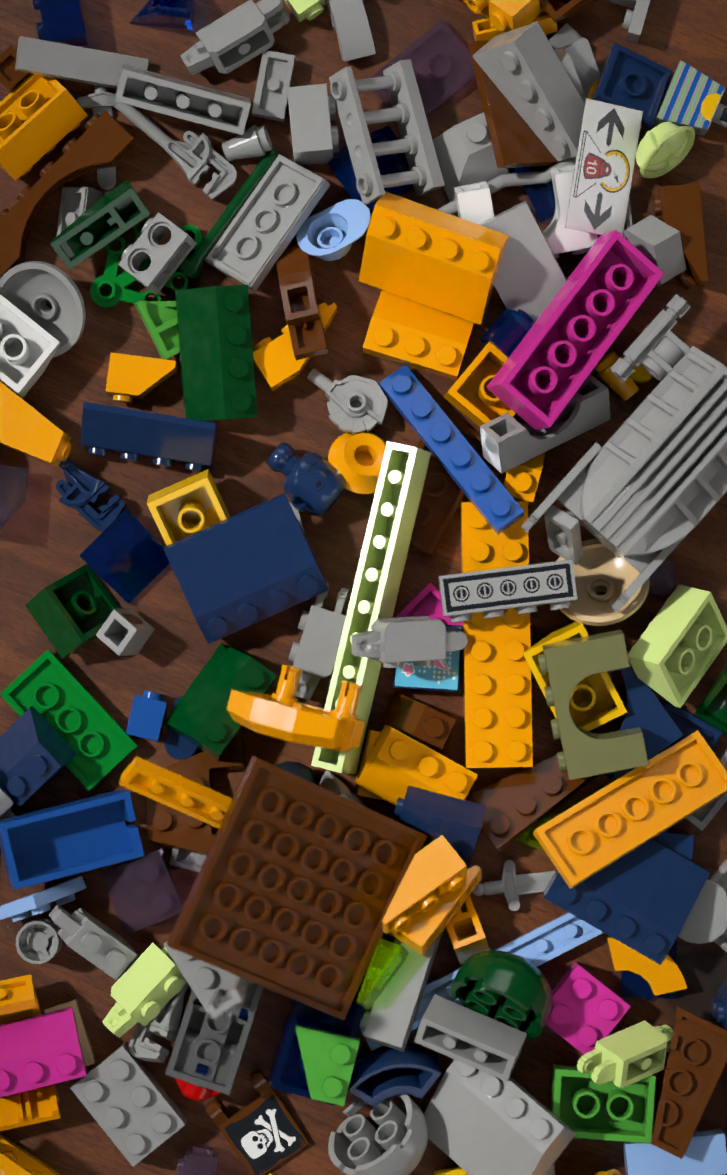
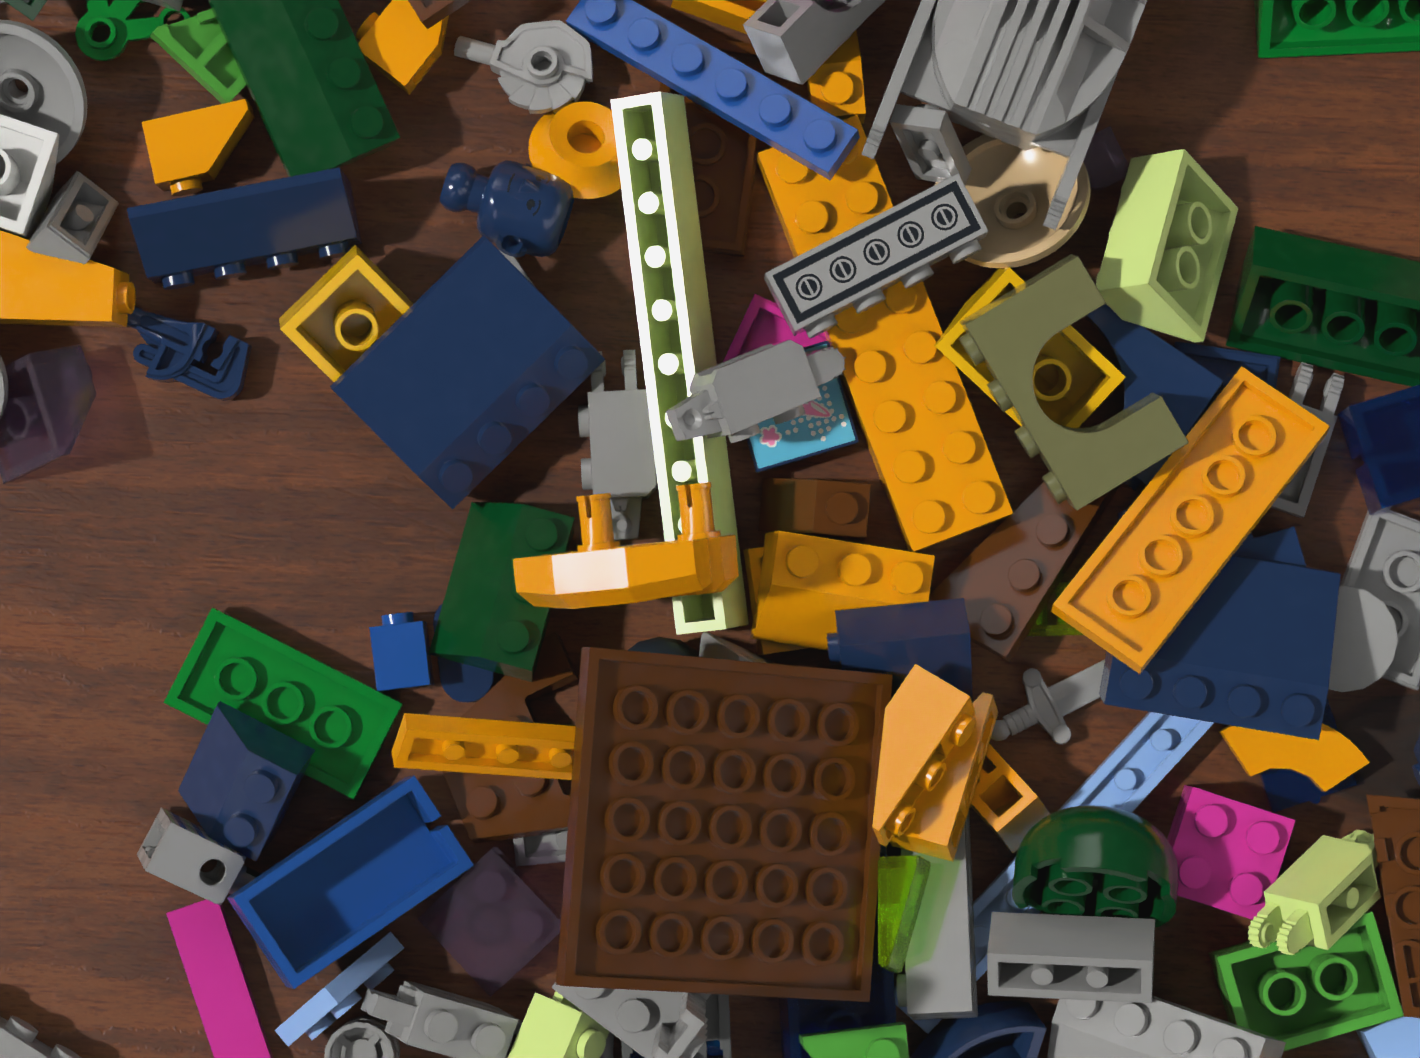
camera: 20 degrees left, 0 degrees up
(50, 395) = (74, 221): none -> light grey slope
(72, 610) = (231, 534): dark green slope -> none
(125, 632) = (319, 538): light grey brick -> none
(126, 556) = (280, 422): clear blue slope -> none

